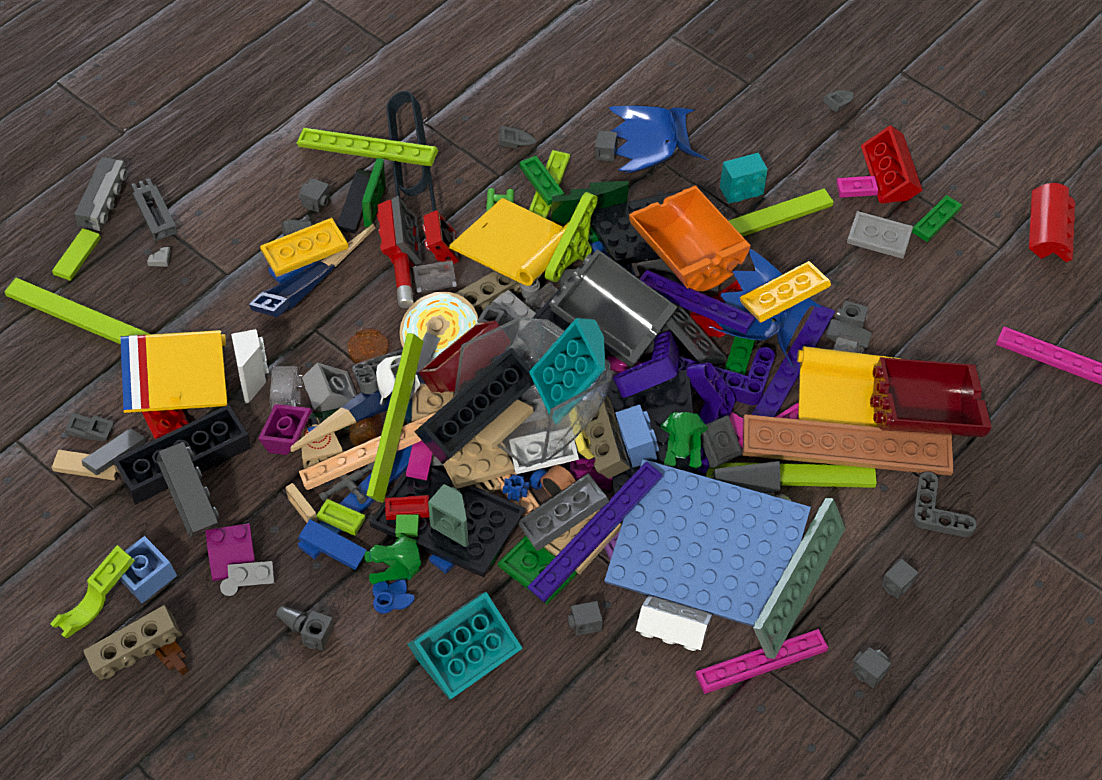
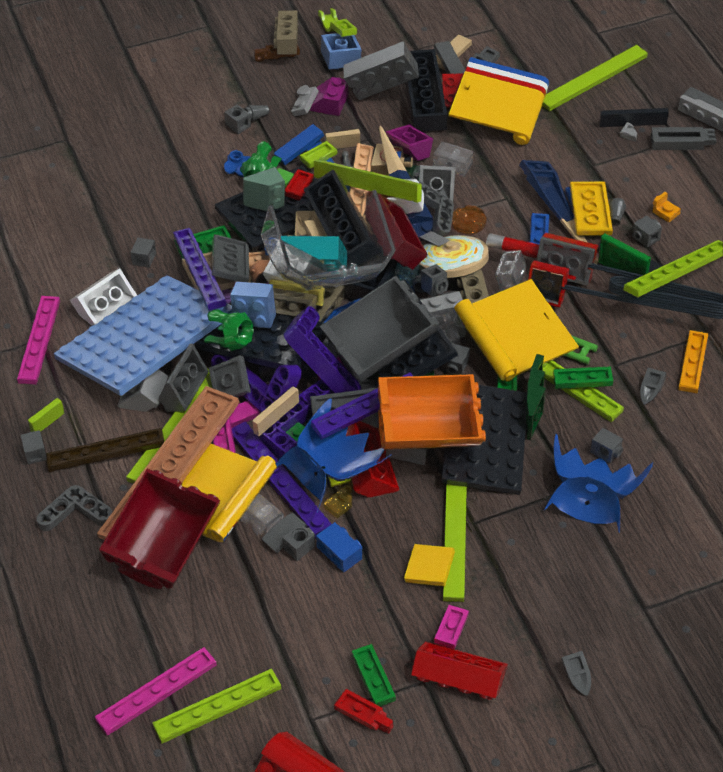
camera: 120 degrees right, 5 degrees down
(76, 254) = (656, 89): lime tile -> none
(139, 256) = (636, 117): none -> black tile
(250, 362) = (476, 130): white slope -> none
(270, 193) = (664, 208): none -> light orange bracket
(359, 282) = (539, 227): none -> blue tile
(465, 121) = (693, 362): none -> light orange tile
(465, 645) = (172, 184): teal slope -> none
(574, 242) = (485, 353): lime beam -> none
(743, 178) = (502, 524): teal brick -> none
(744, 378) = (275, 411): none -> tan tile
(785, 291) = (329, 460): yellow tile -> none
(799, 578) = (77, 377): sand green plate -> none
(810, 220) = (429, 565): none -> yellow tile
(841, 283) = (339, 547): none -> blue brick
(857, 589) = (46, 416): none -> lime tile
(859, 517) = (105, 449): none -> dark brown tile
(880, 234) = (384, 620): light grey tile -> none
(972, 213) = (363, 711): none -> red hinge
(1038, 310) = (216, 706): none -> lime tile

